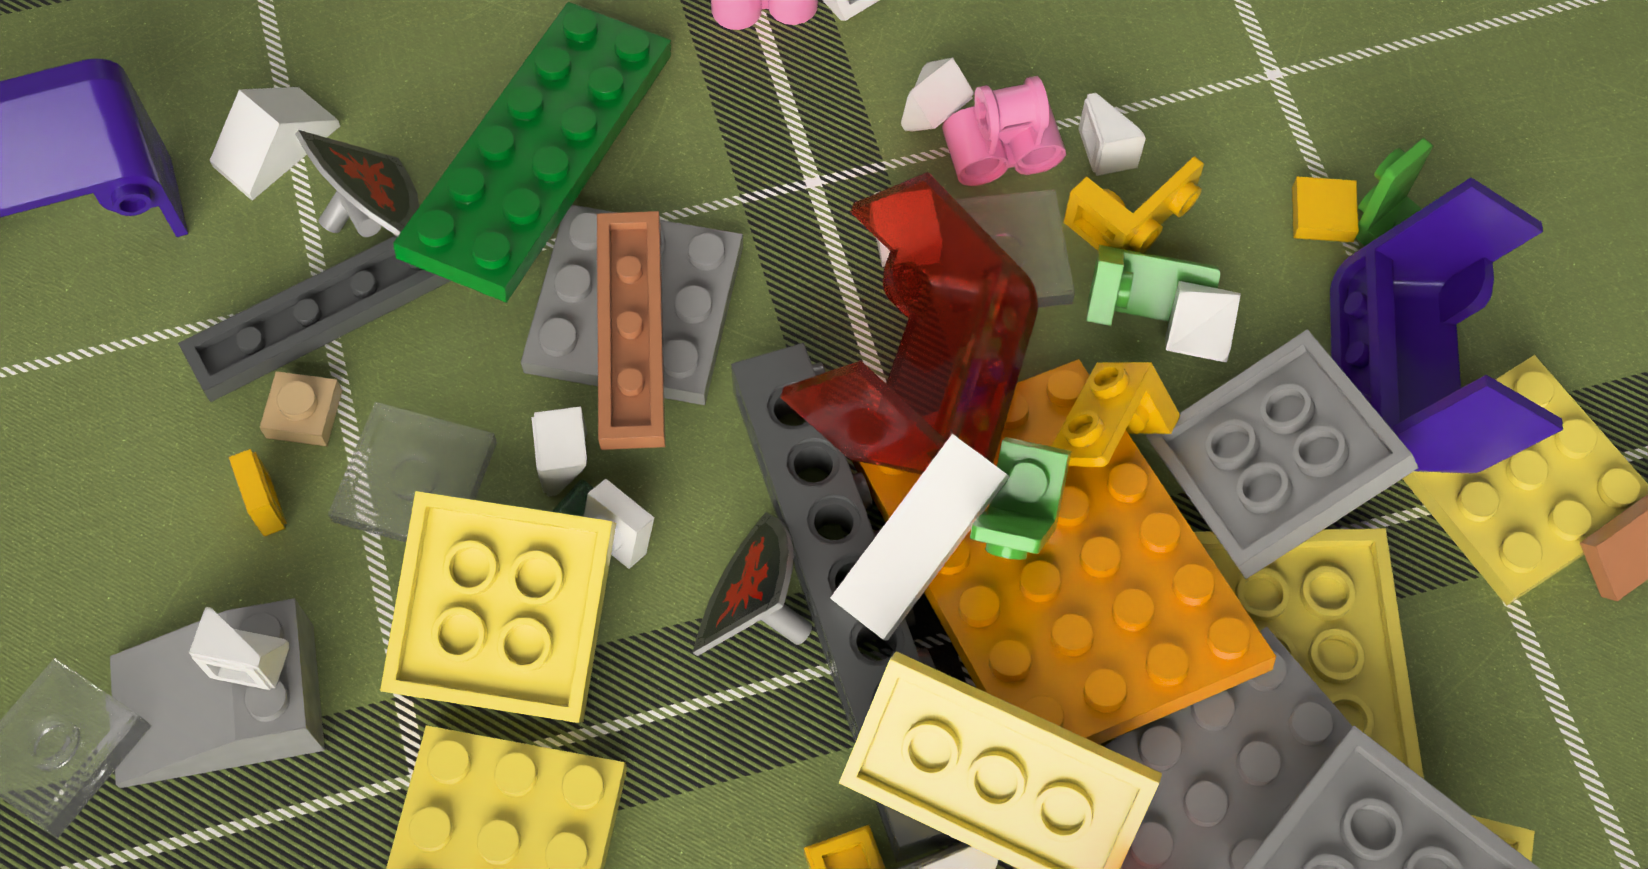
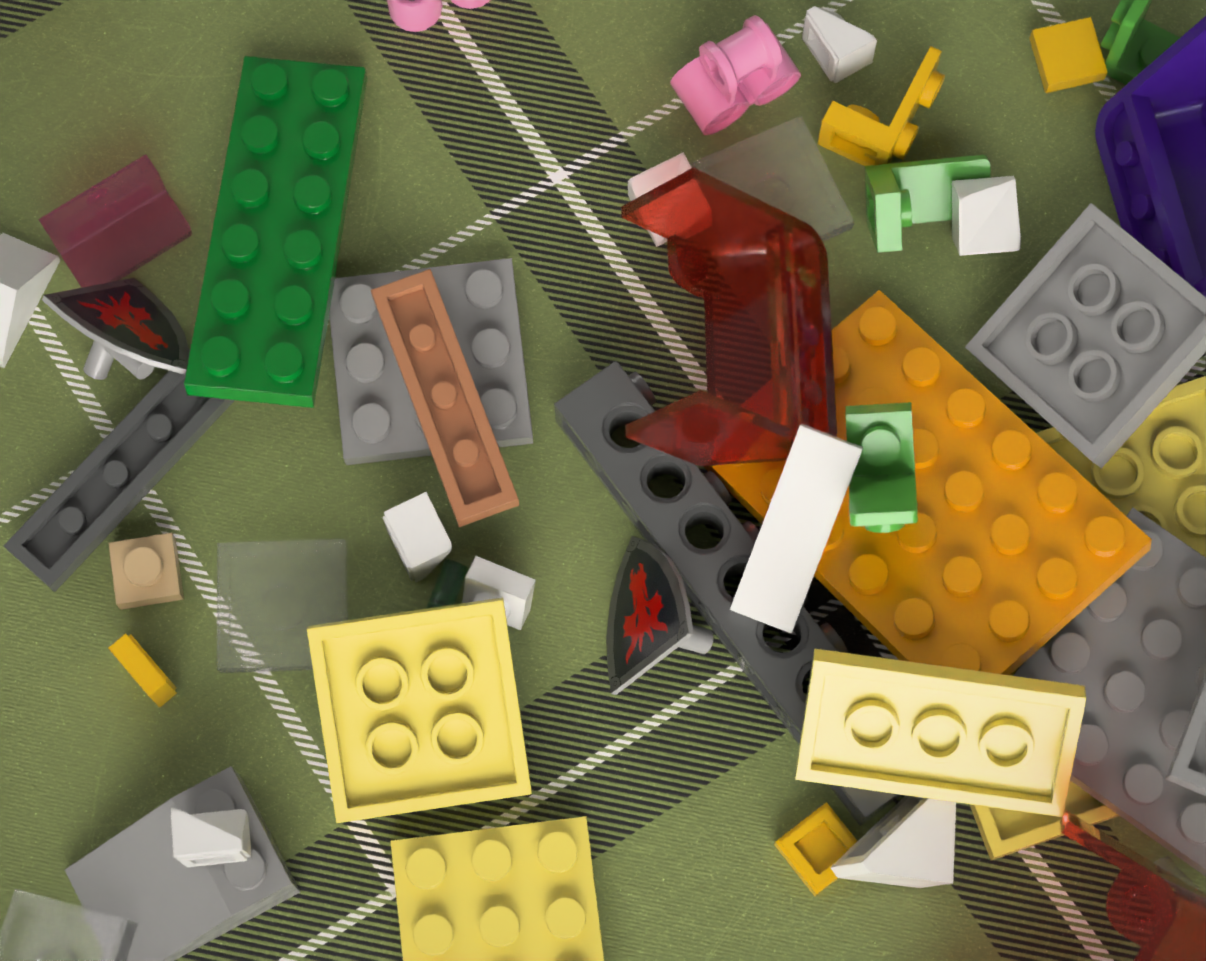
camera: 15 degrees left, 10 degrees up
(398, 103) = (116, 225): none -> clear pink panel
(936, 96) = (654, 52): white slope -> none
(1112, 401) = (925, 335): yellow bracket -> none

